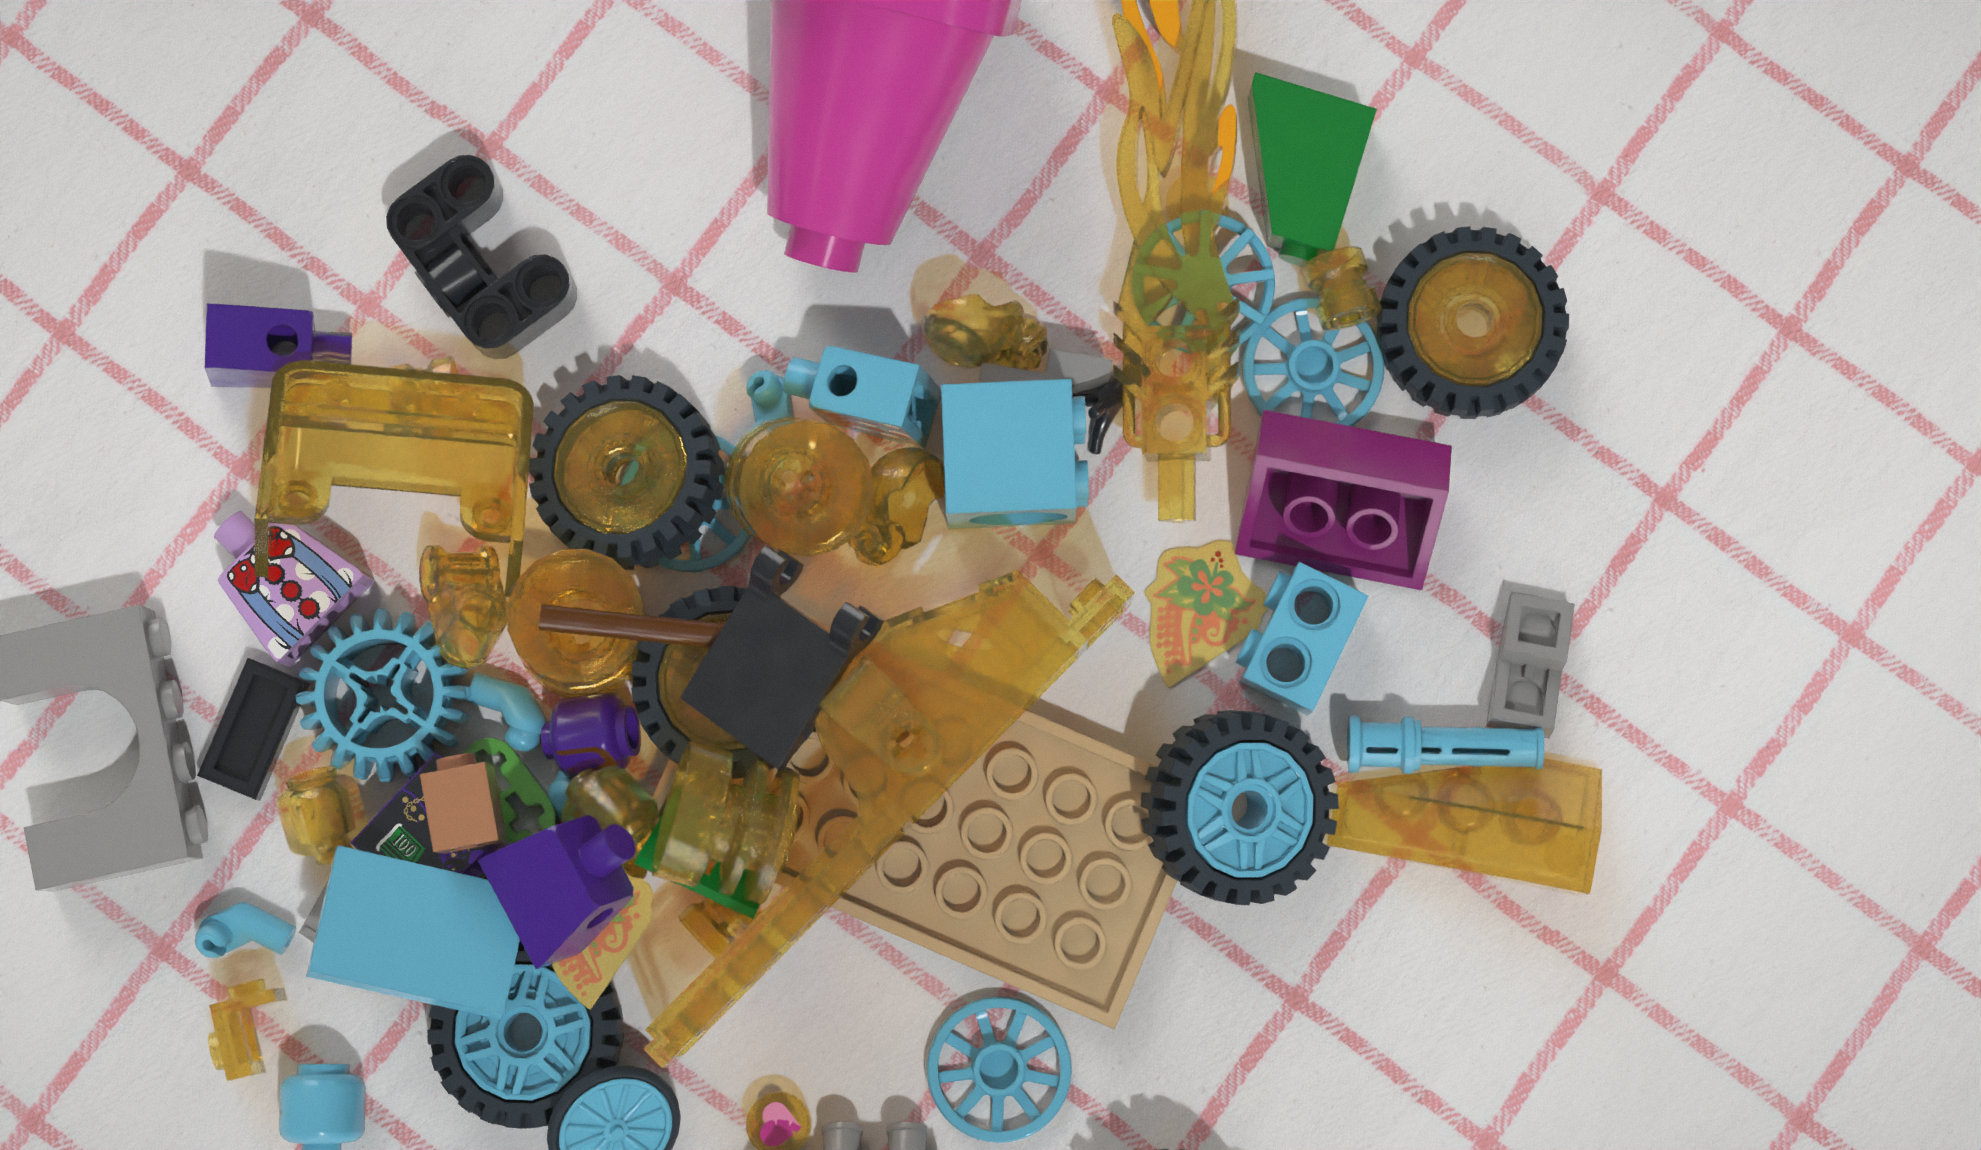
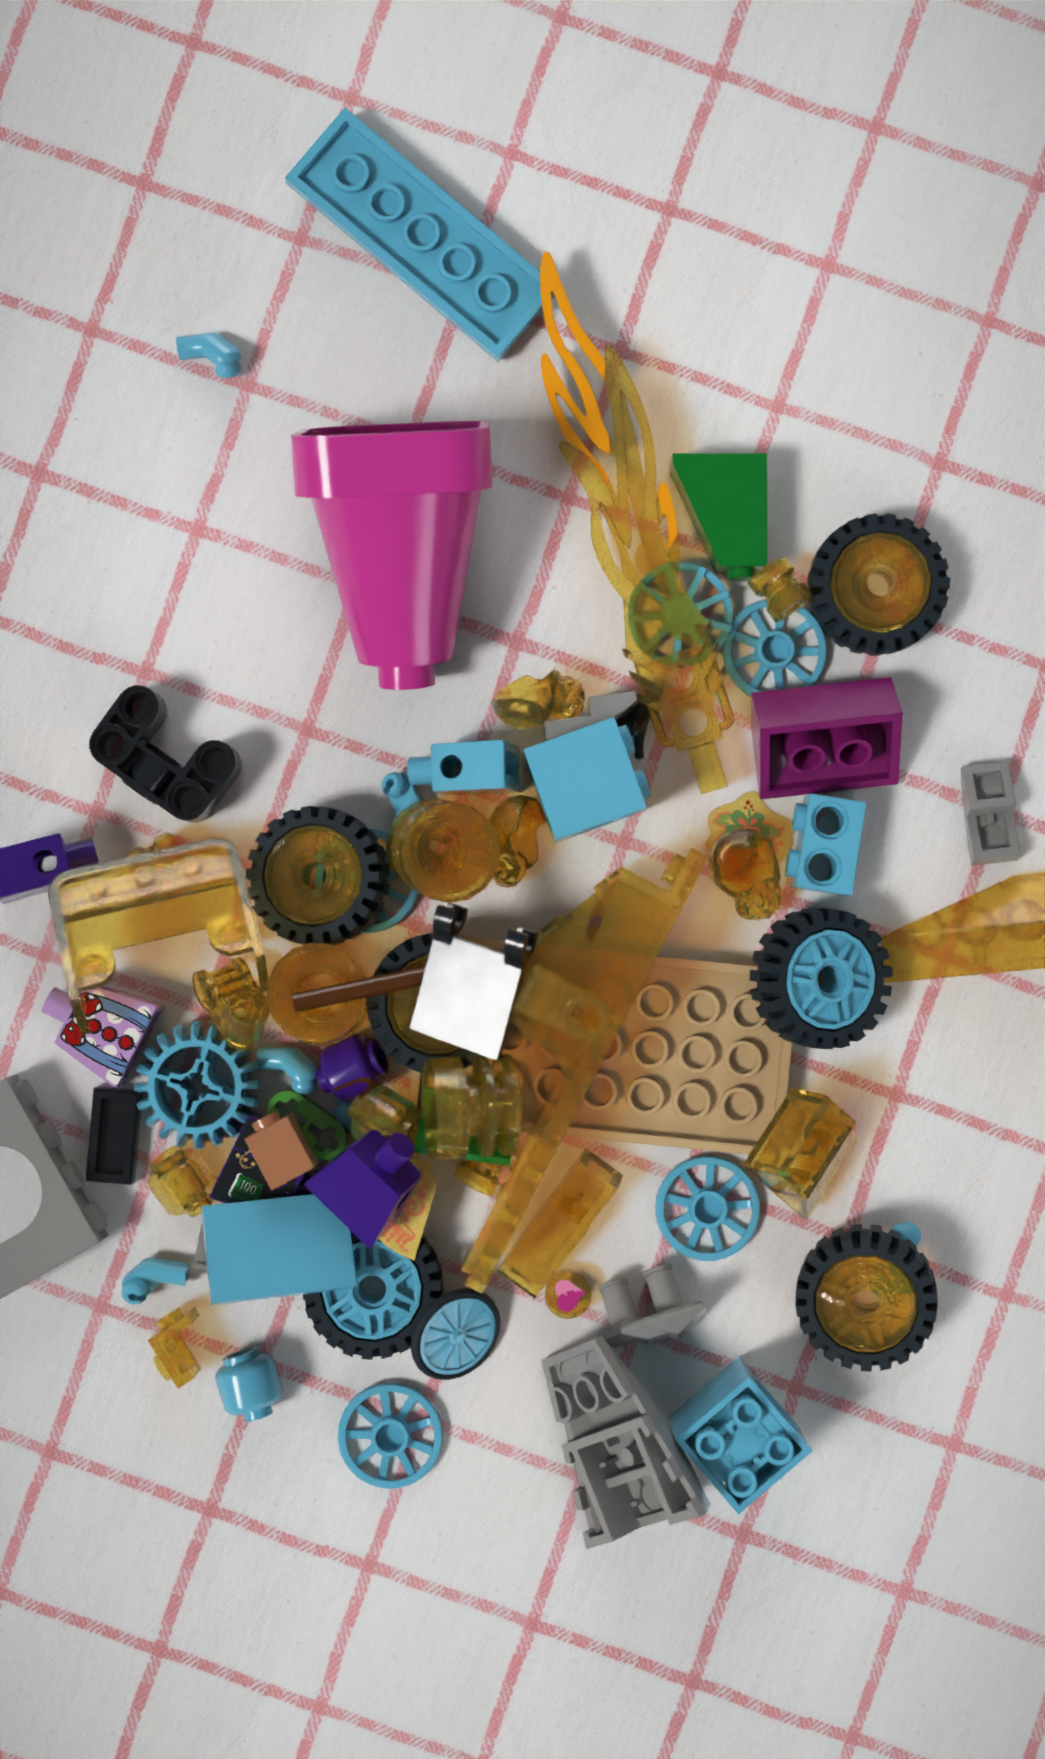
camera: 20 degrees left, 5 degrees up
(797, 1026) = (560, 1223): none -> clear yellow slope
(1147, 1026) = (803, 1149): none -> clear yellow slope
(1188, 638) = (748, 871): none -> clear yellow hair
(1410, 745) = (926, 895): medium azure pin -> none

